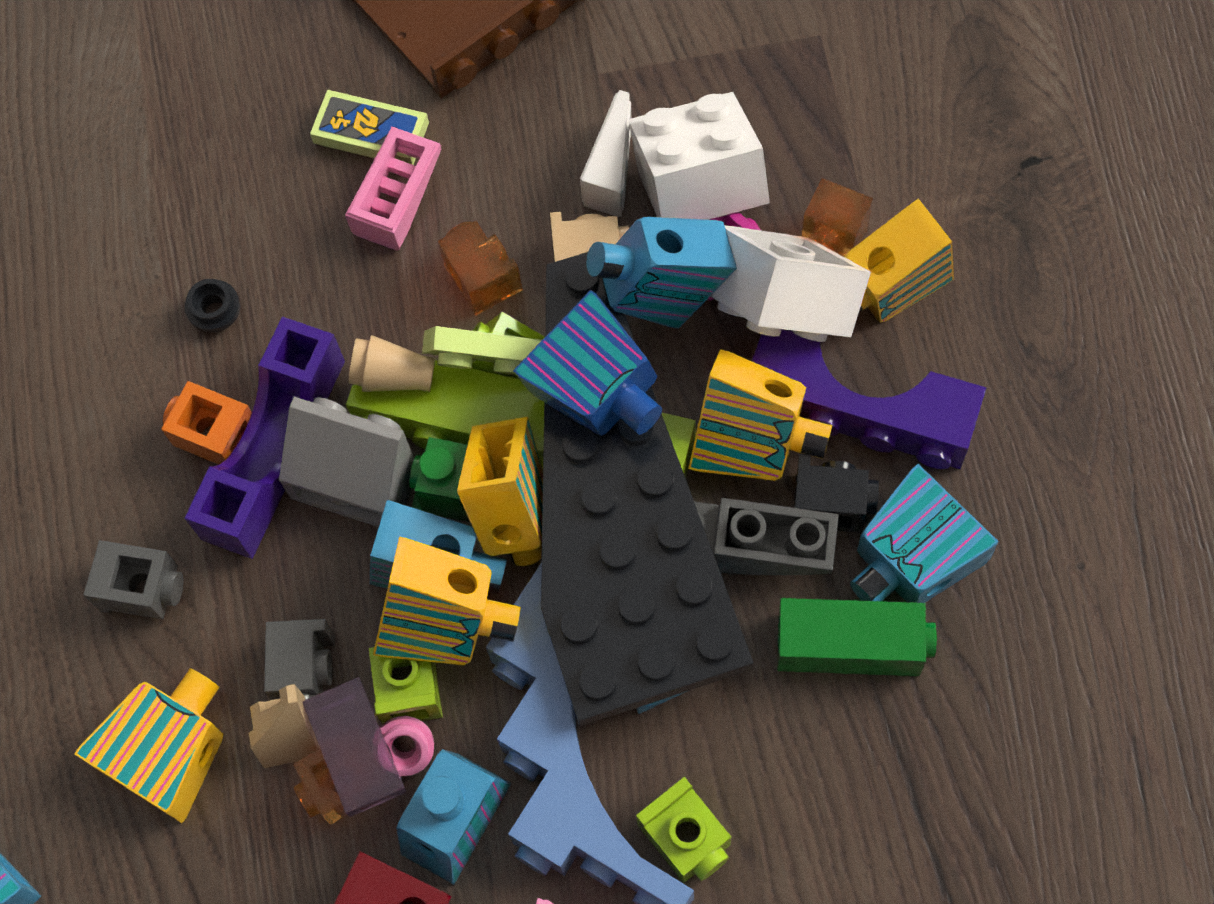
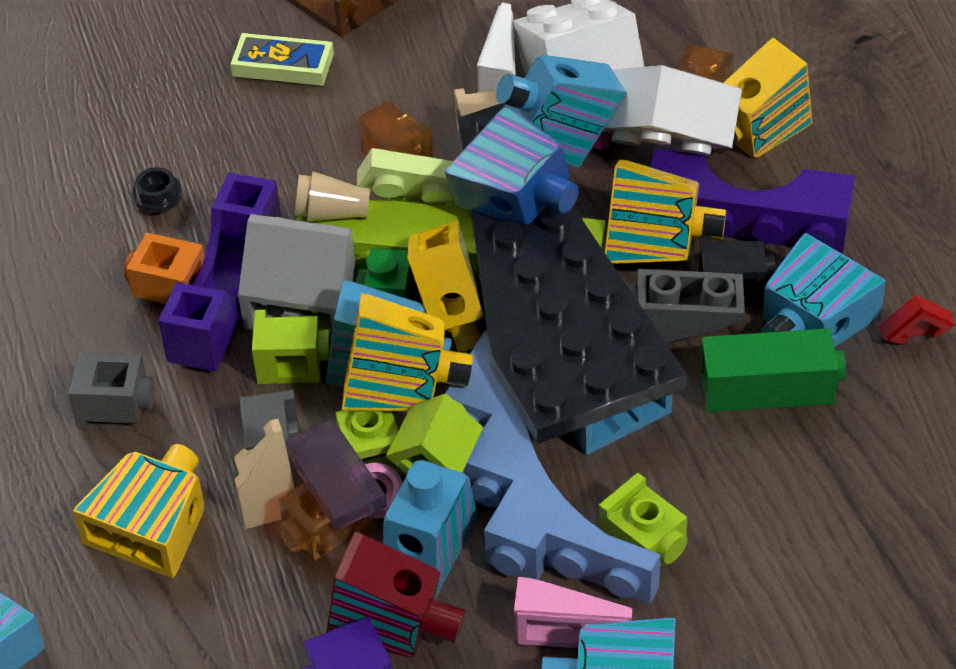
camera: 10 degrees left, 20 degrees down
(329, 544) = (289, 349): none -> lime brick
(360, 215) = (303, 121): bright pink slope -> none
(469, 710) = (436, 433): none -> lime brick
(1025, 581) = (916, 319): none -> red tile

